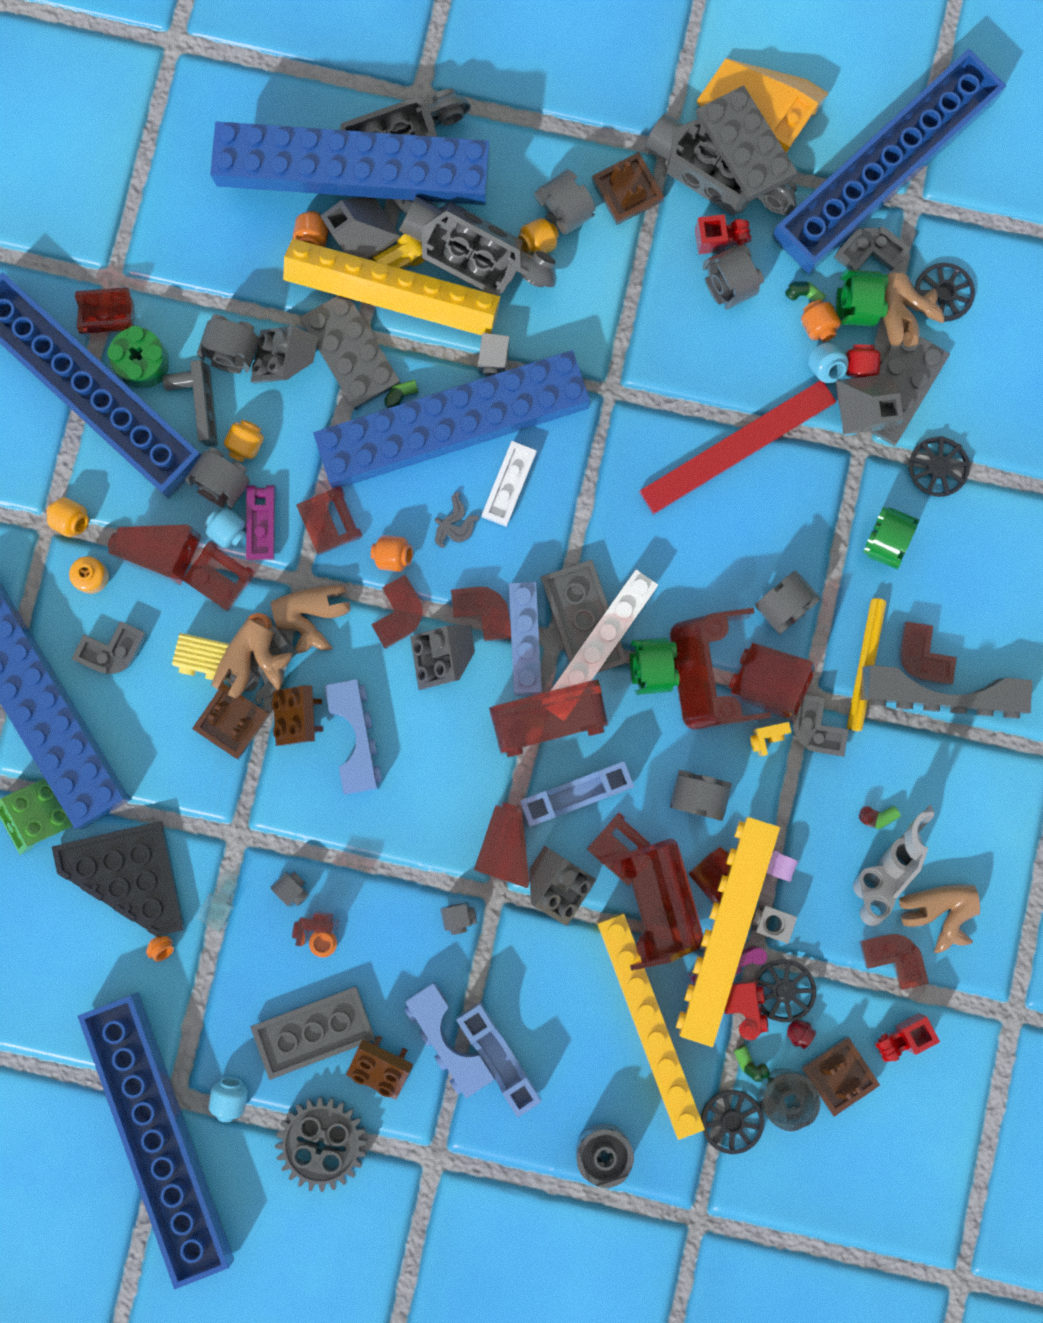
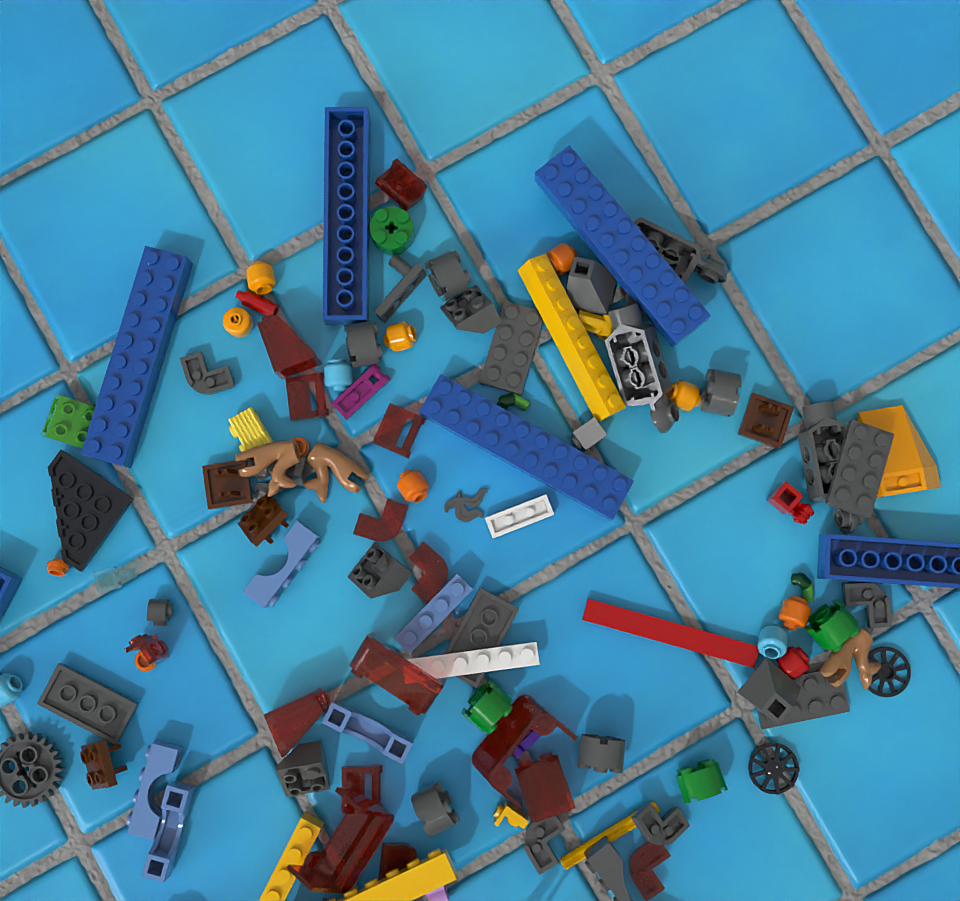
camera: 50 degrees right, 0 degrees up
(87, 542) = (257, 303): none -> red cylinder
(458, 917) = (232, 727): dark grey plate -> none
(717, 659) = (526, 743): none -> dark purple plate
(732, 276) = (770, 535): dark grey brick -> none
(899, 615) = (657, 829): none -> dark grey plate

